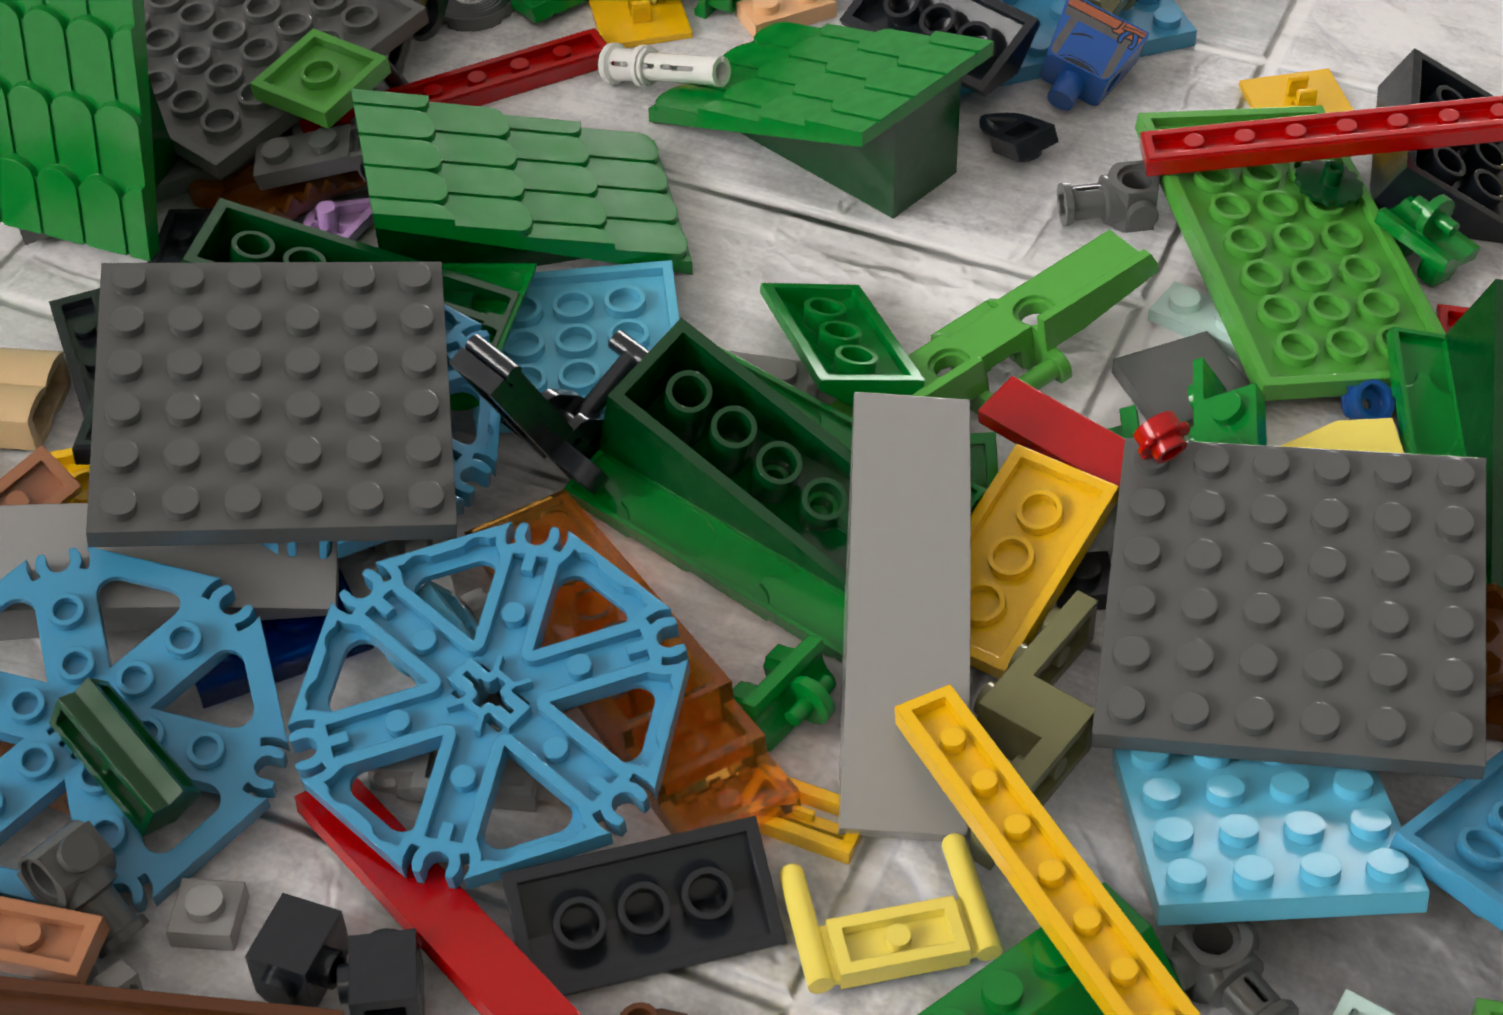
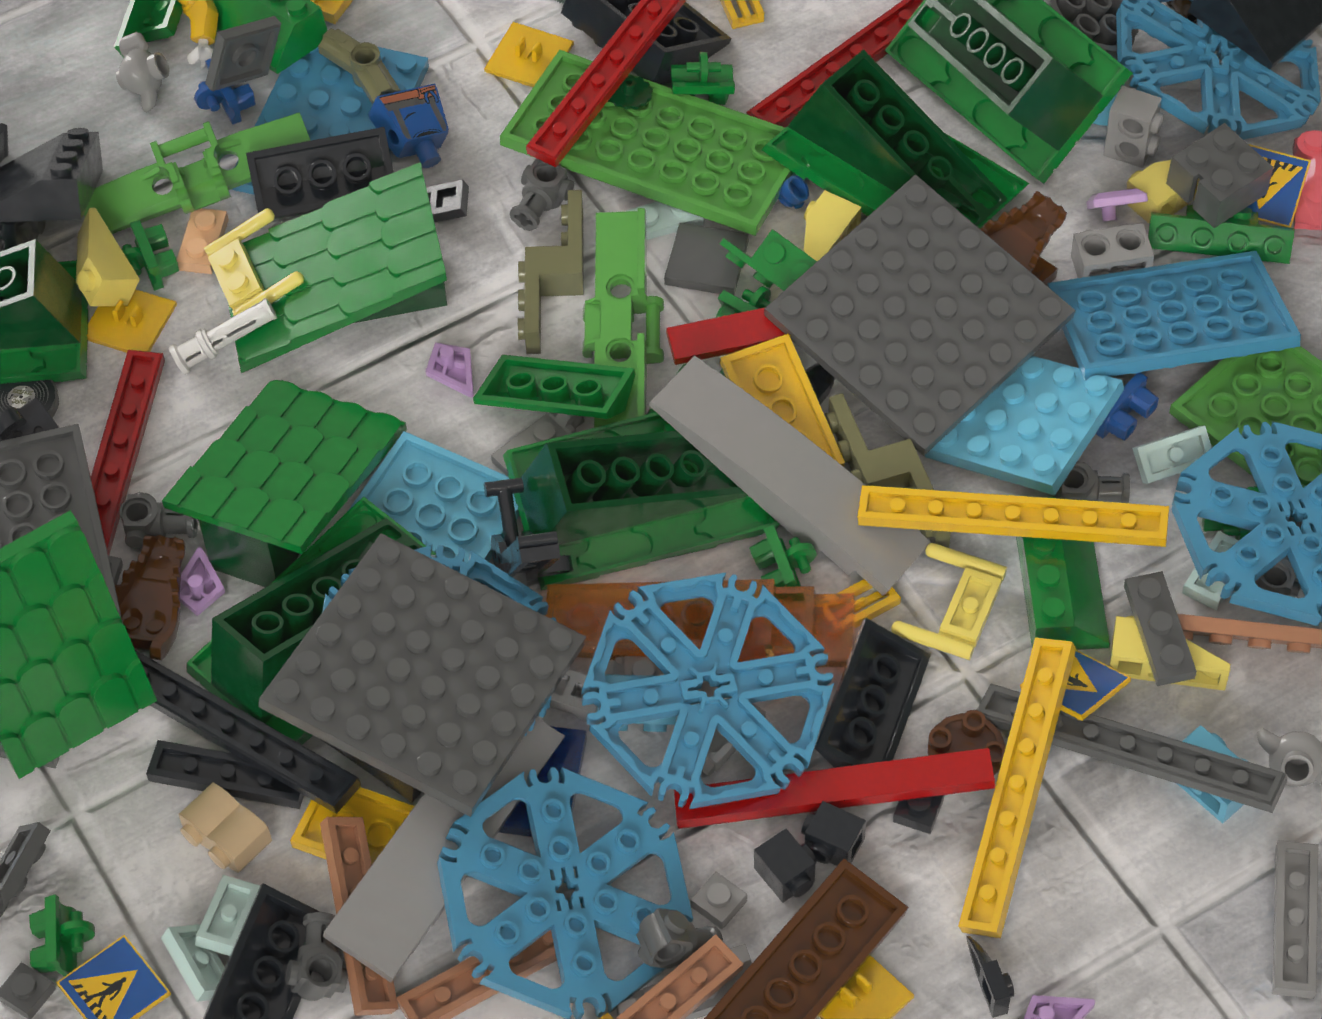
camera: 55 degrees left, 10 degrees up
(123, 756) = (613, 878): dark green piece -> none
(308, 156) = (157, 556): dark grey plate -> none
(318, 77) = (110, 512): bright green plate -> none
(763, 28) = (236, 269): none -> light yellow plate
(806, 256) = (451, 367): none -> lavender piece
(997, 255) = (551, 272): none -> olive bracket
(1161, 437) = (793, 292): red plate -> none
(1432, 938) = (1135, 398): none -> blue hips

